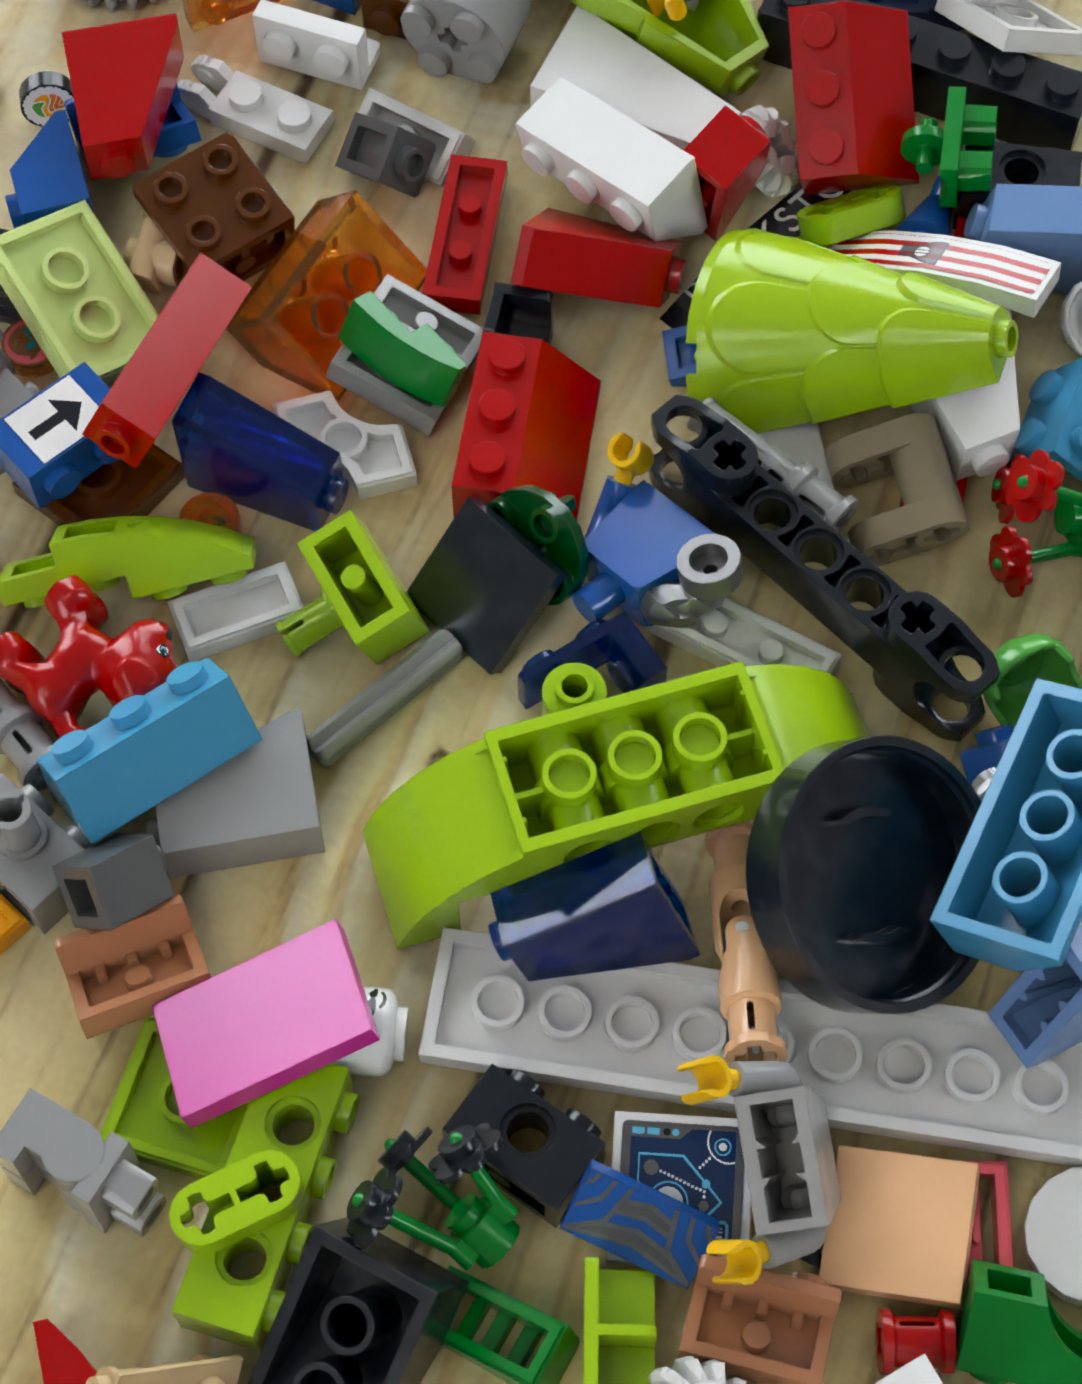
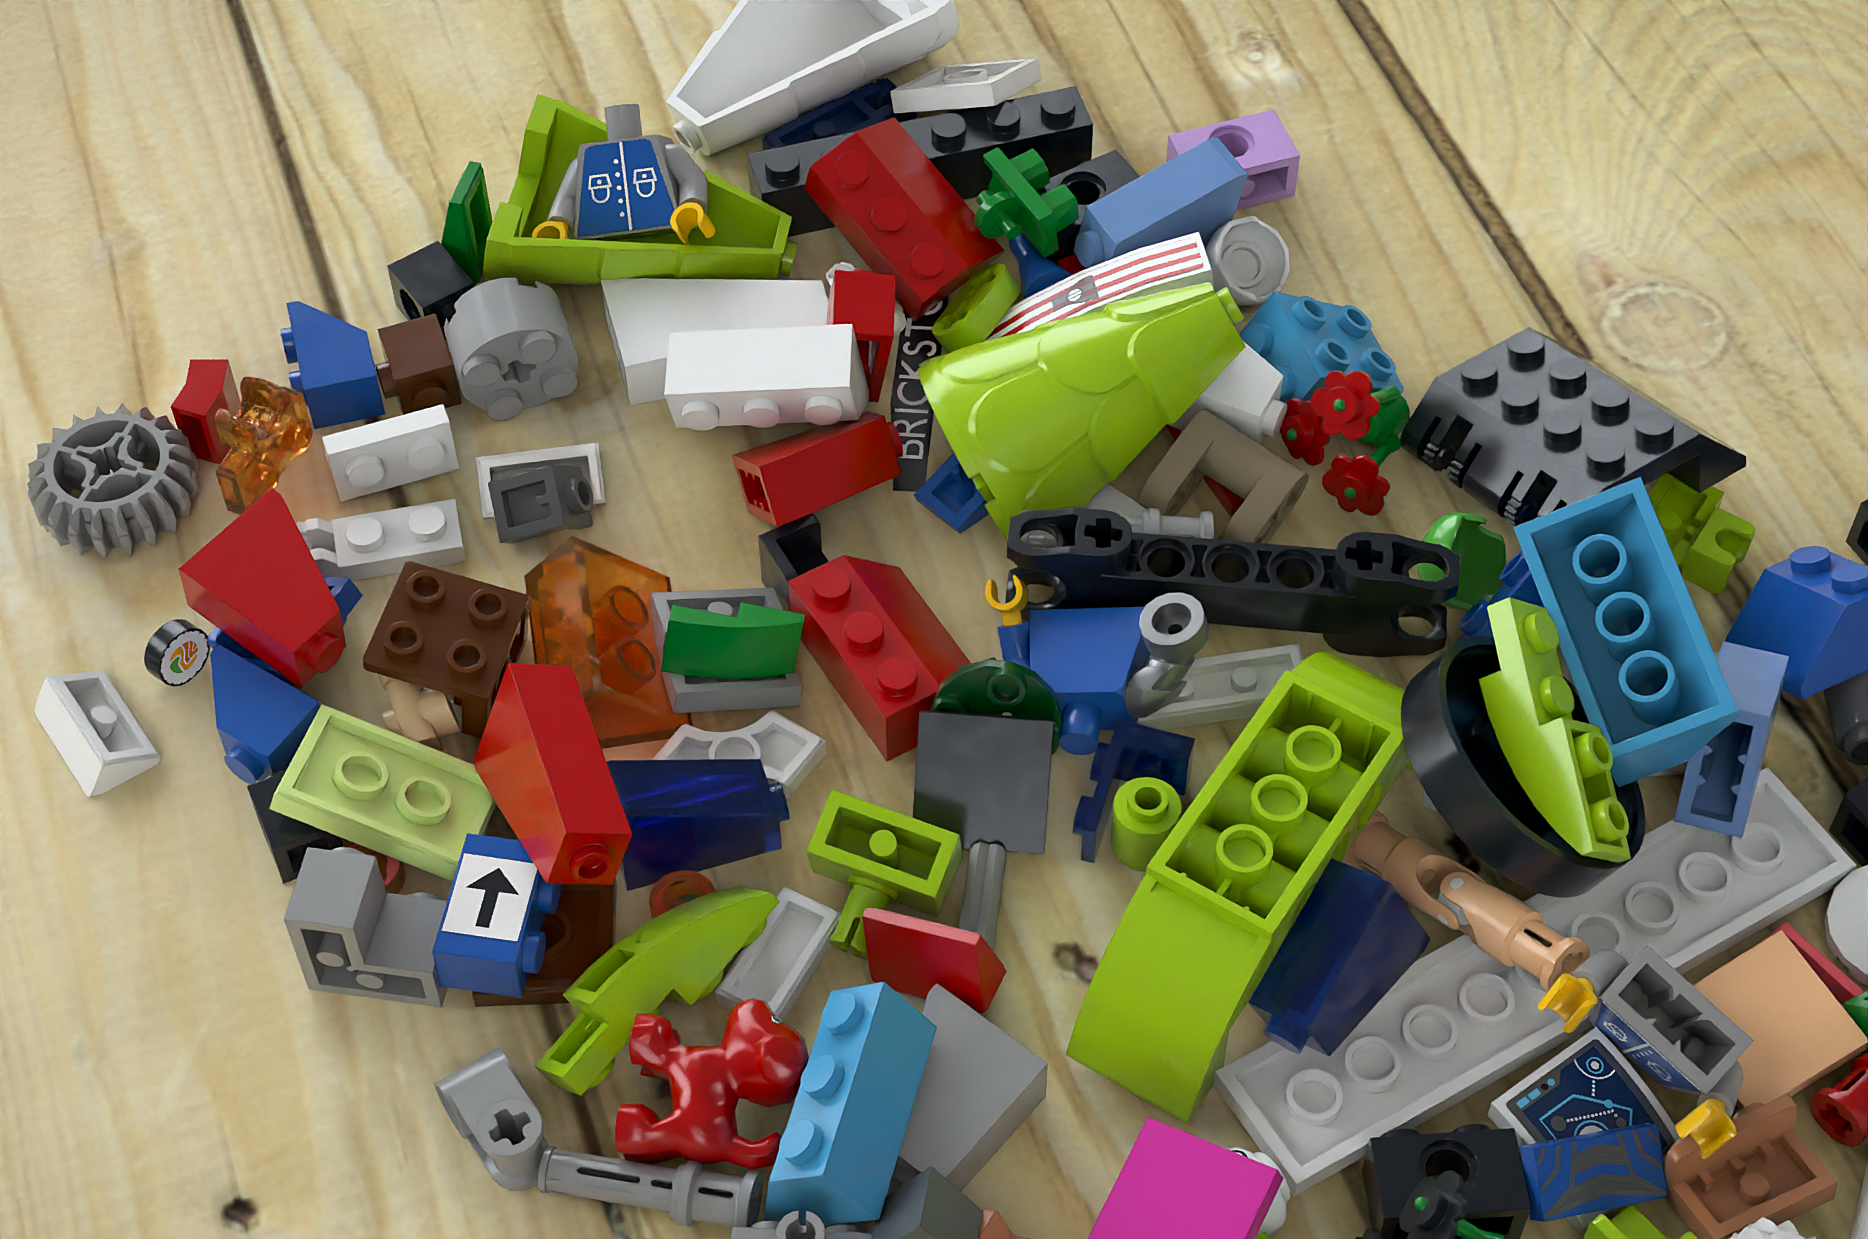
camera: 40 degrees left, 10 degrees down
(320, 693) = (919, 954): none -> red slope
(465, 233) = (673, 521): red plate -> none
(891, 876) = (1553, 757): none -> lime slope

